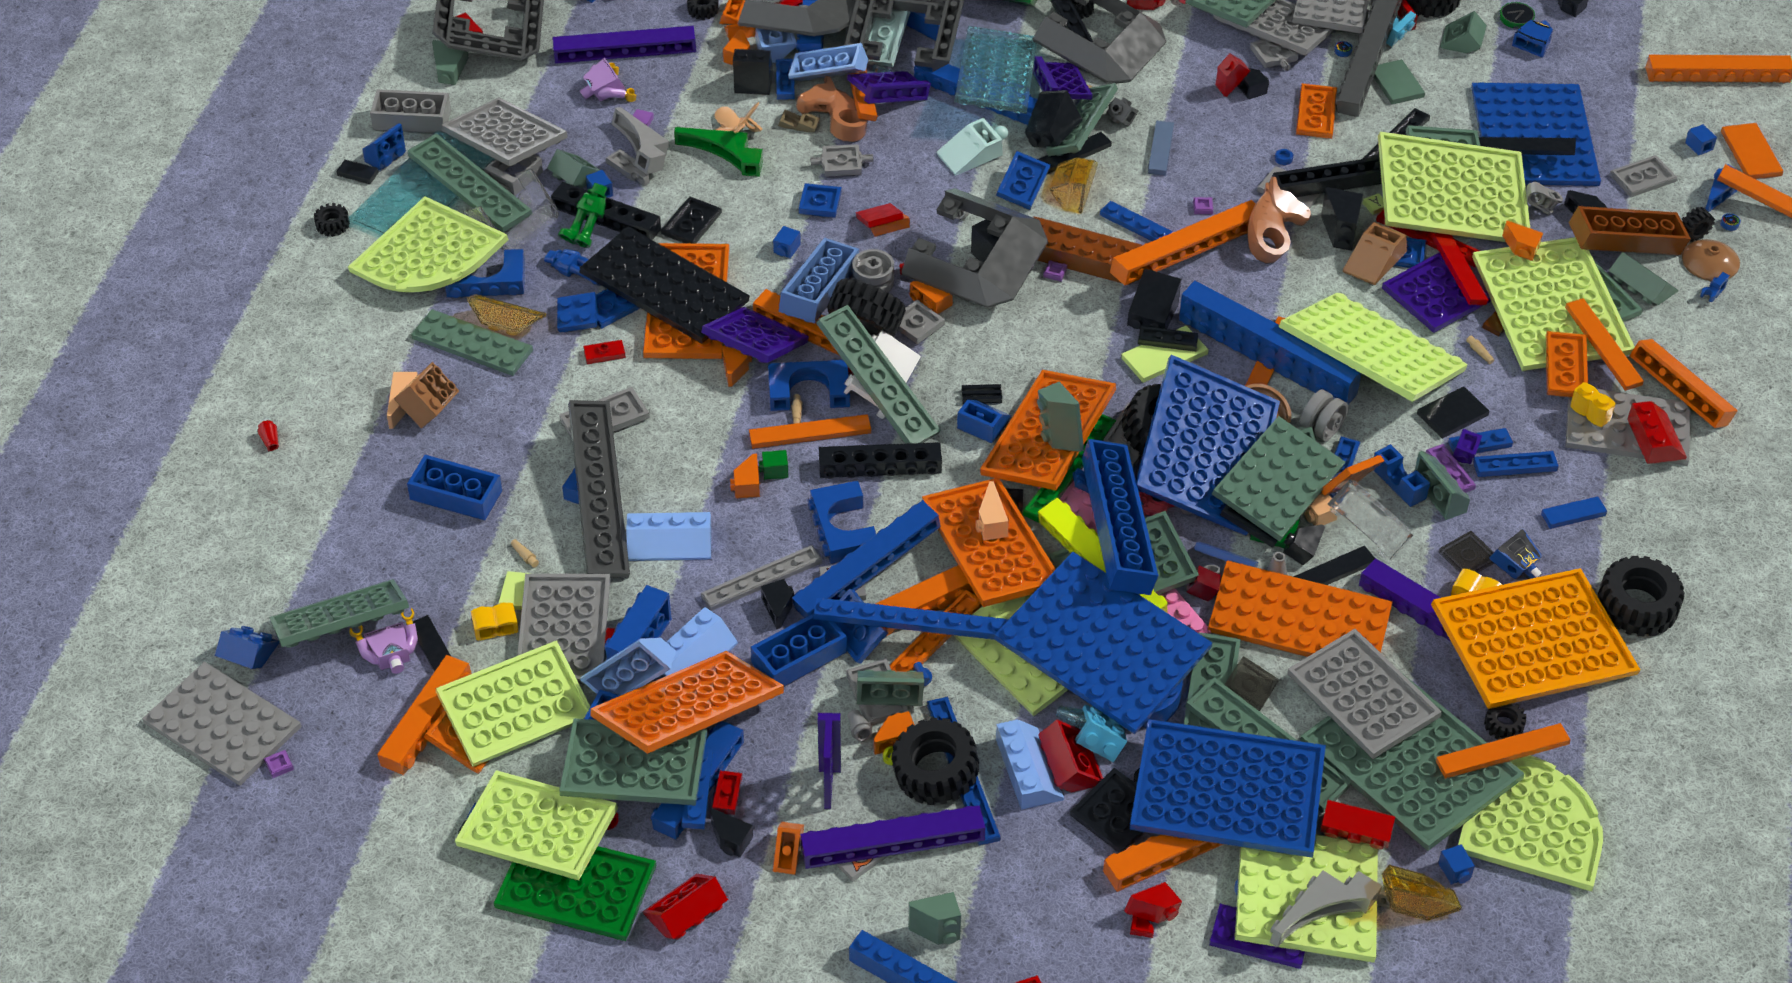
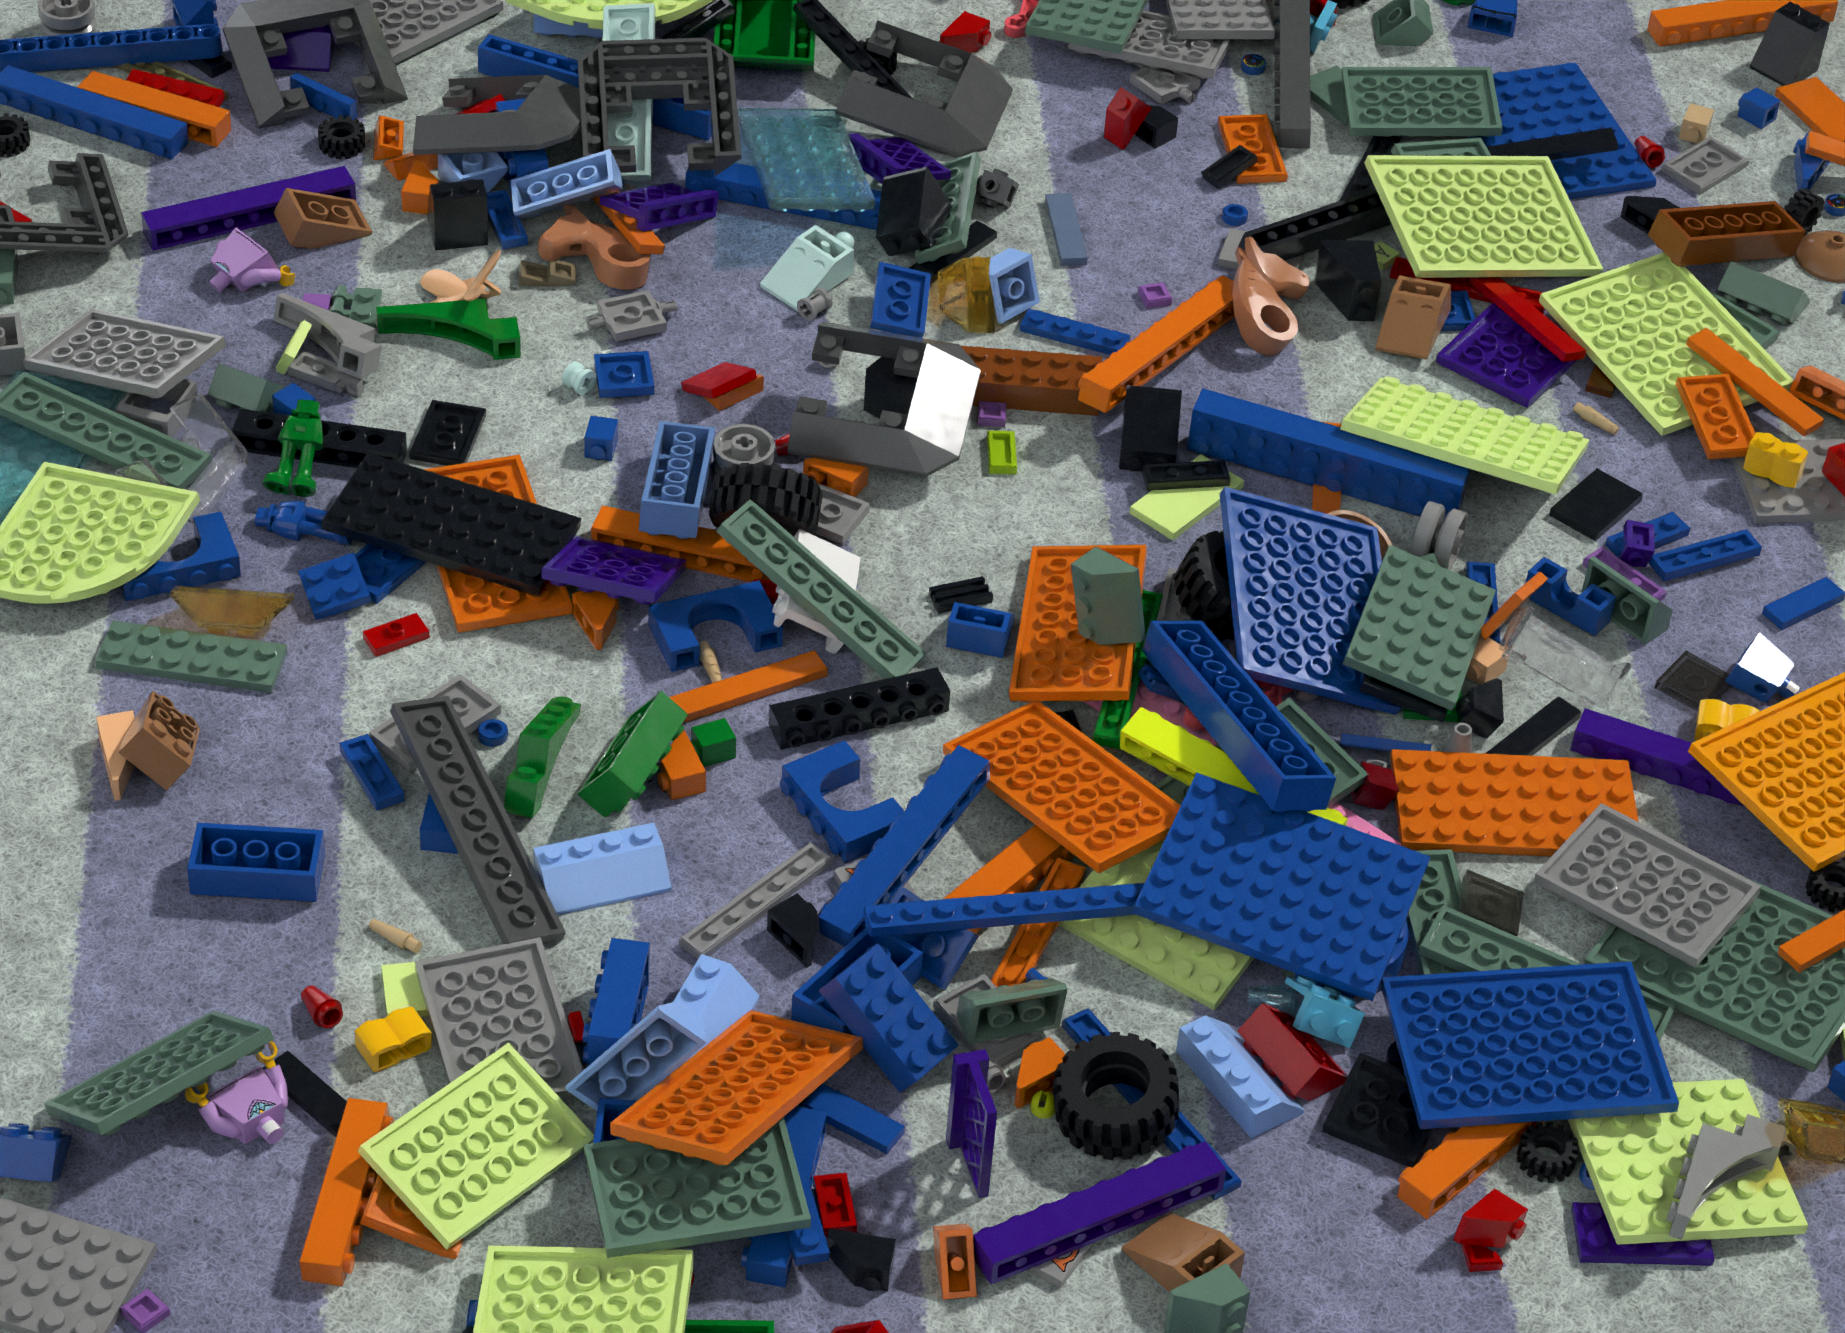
camera: 20 degrees left, 5 degrees down
(459, 591) = (322, 1007): none -> red cone
(551, 441) = (372, 772): none -> blue plate
(614, 144) = (293, 347): none -> yellowish green tile
(639, 430) = (492, 733): none -> blue tile
(656, 449) = (537, 754): none -> green arch
(665, 59) = (319, 219): none -> medium nougat slope
(670, 121) = (362, 304): none -> sand green plate
(716, 464) = (633, 755): none -> green brick
(764, 737) = (856, 1118): none -> blue tile
(789, 198) = (579, 378): none -> light aqua wheel
(804, 675) = (890, 1018): none -> blue brick
(939, 874) = (1182, 1250): none -> medium nougat slope
(966, 173) = (817, 302): none -> light grey bush
(992, 516) = (1062, 751): light nougat slope -> none
(1050, 299) = (1001, 452): none -> lime tile
(1100, 182) = (1012, 283): none -> light blue slope
(1214, 875) = (1547, 1166): none -> black tyre
(1293, 121) = (1229, 166): none -> black tile
(1357, 824) = (1715, 1056): red slope -> none
(1449, 96) = (1421, 101): none -> sand green plate
(1522, 240) = (1599, 266): orange slope -> none
(1545, 199) = (1599, 211): light grey piece -> none
(1604, 159) = (1649, 151): none -> red cone
(1648, 144) = (1696, 123): none -> tan brick
(1742, 97) = (1791, 45): none -> black slope

